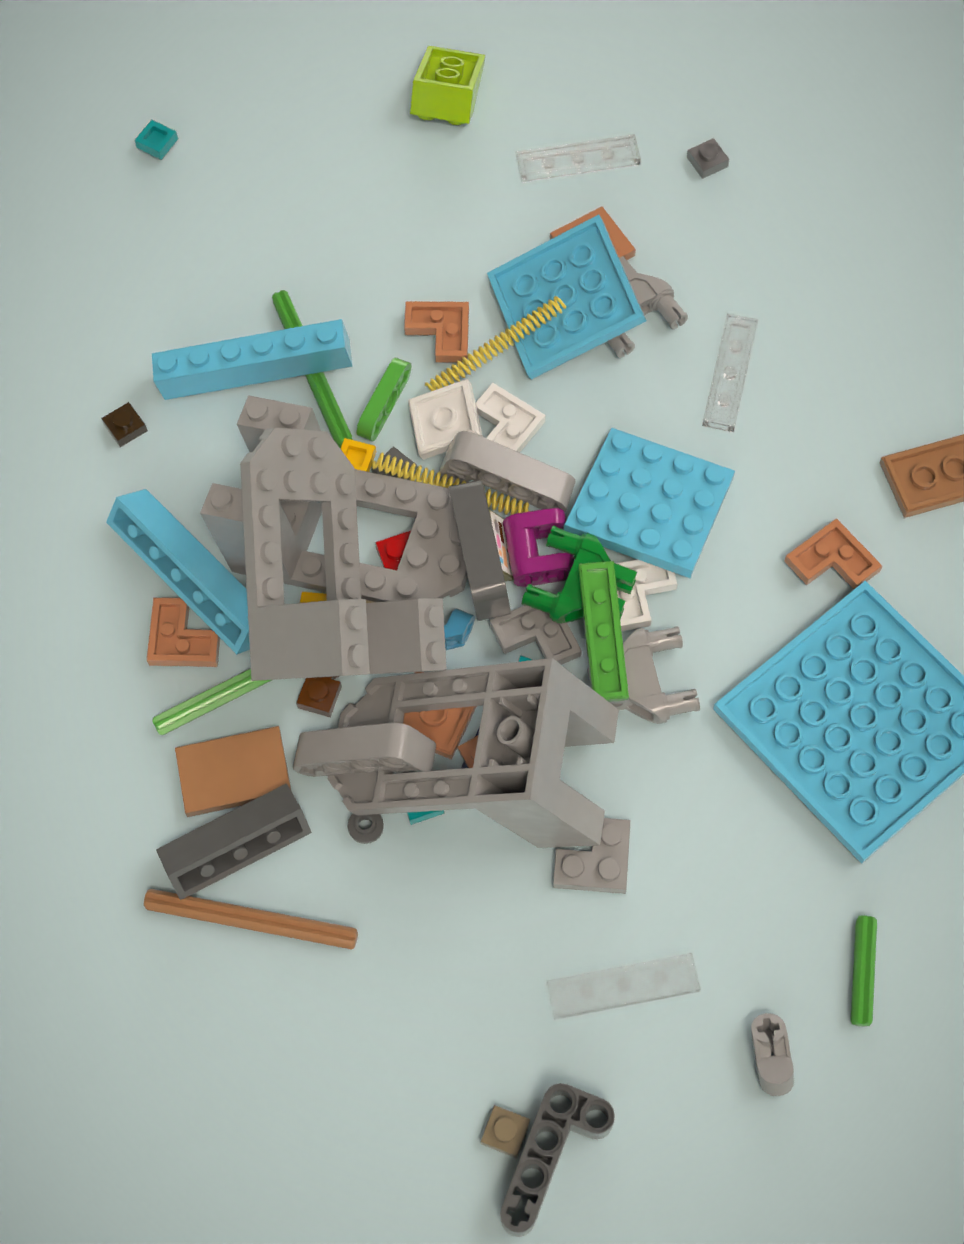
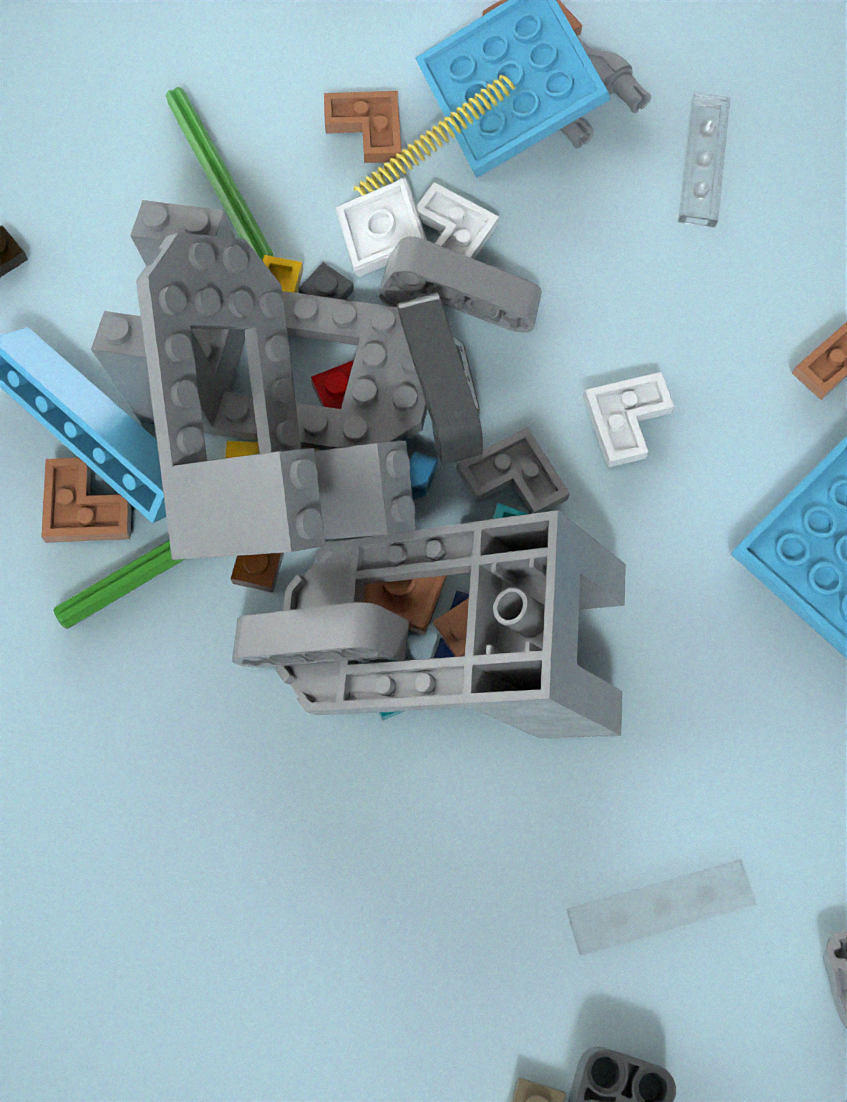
camera: 10 degrees left, 5 degrees up
(231, 770) = (157, 668): medium nougat tile -> none
(233, 841) = (162, 761): dark grey brick -> none
(251, 919) = (192, 855): medium nougat axle -> none
(252, 359) = (146, 167): medium azure brick -> none
(369, 835) = (331, 739): dark grey plate -> none
(384, 399) = (307, 207): bright green beam -> none
(492, 500) = (378, 298): light yellow piece -> none
(521, 535) = (493, 393): magenta connector -> none
(567, 605) = (568, 414): green connector -> none
(597, 870) = (616, 760): light grey plate -> none
(603, 630) = (599, 467): bright green tile -> none
(642, 680) = (640, 524): light grey connector -> none
(650, 502) = (631, 313): medium azure plate -> none

